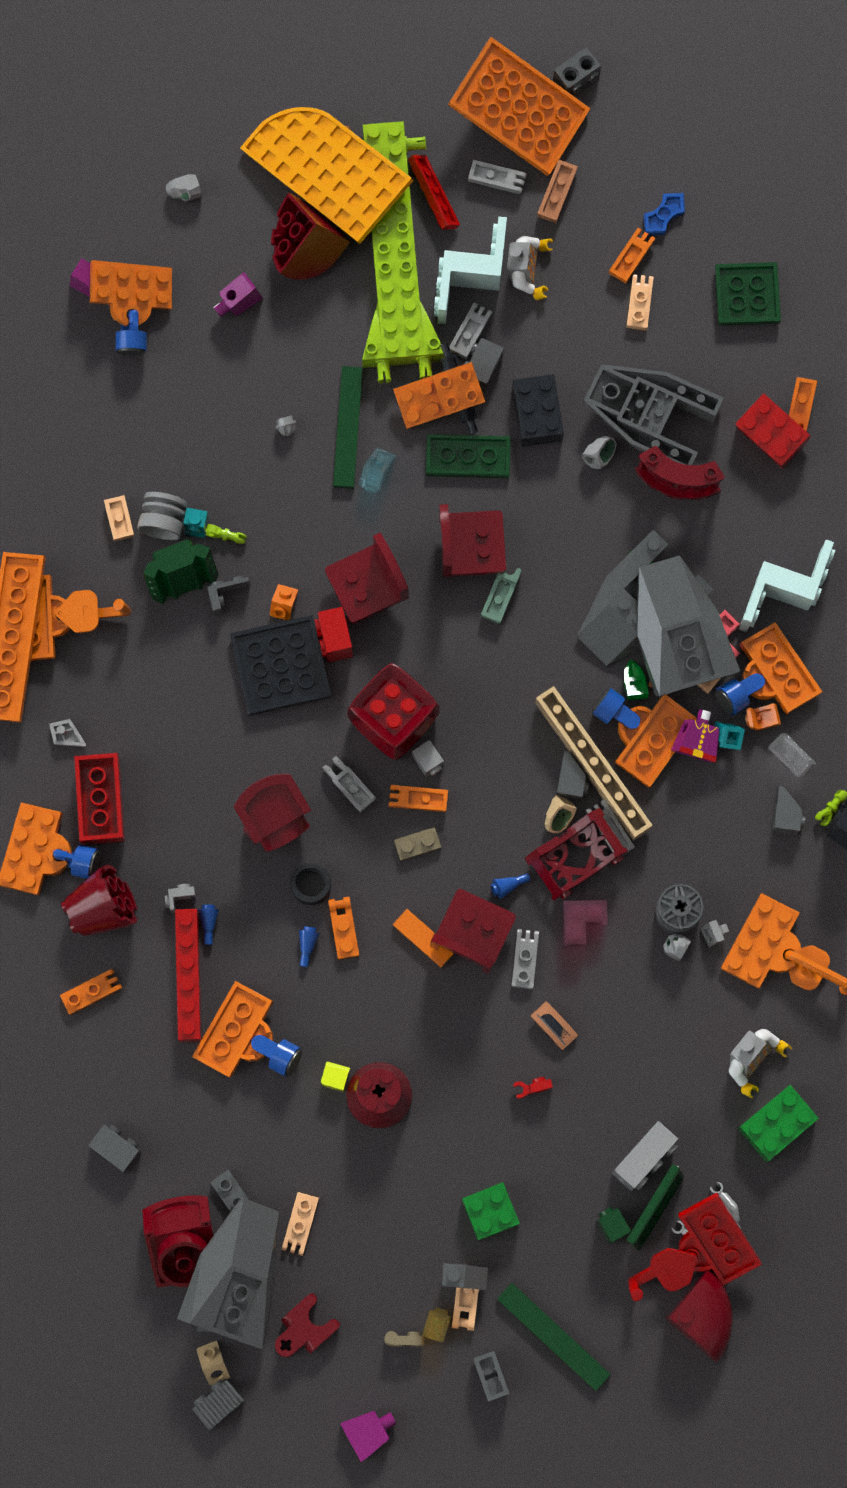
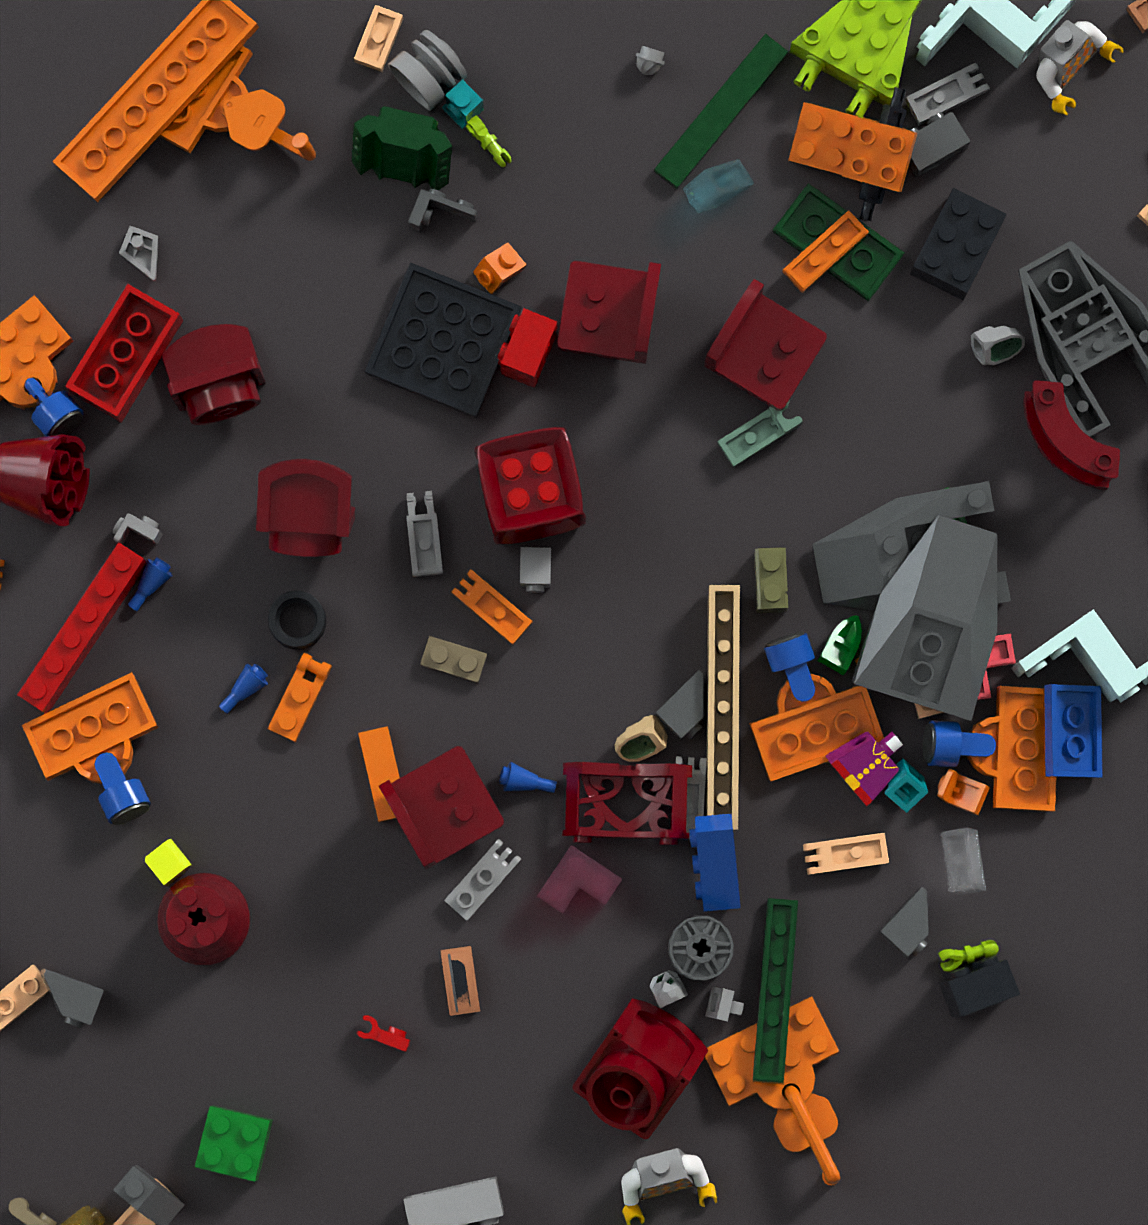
camera: 35 degrees right, 5 degrees up
(160, 774) = (214, 373): none -> dark red piece
(335, 1193) = (72, 997): none -> dark grey slope
(465, 465) = (825, 251): none -> orange tile
(568, 672) = (771, 580): none -> olive brick
(653, 852) = (715, 862): none -> blue brick
(694, 1002) = (640, 1068): none -> dark red piece
(723, 797) = (847, 853): none -> light nougat hinge
(739, 904) = (775, 991): none -> dark green tile
(800, 639) = (1073, 731): none -> blue plate

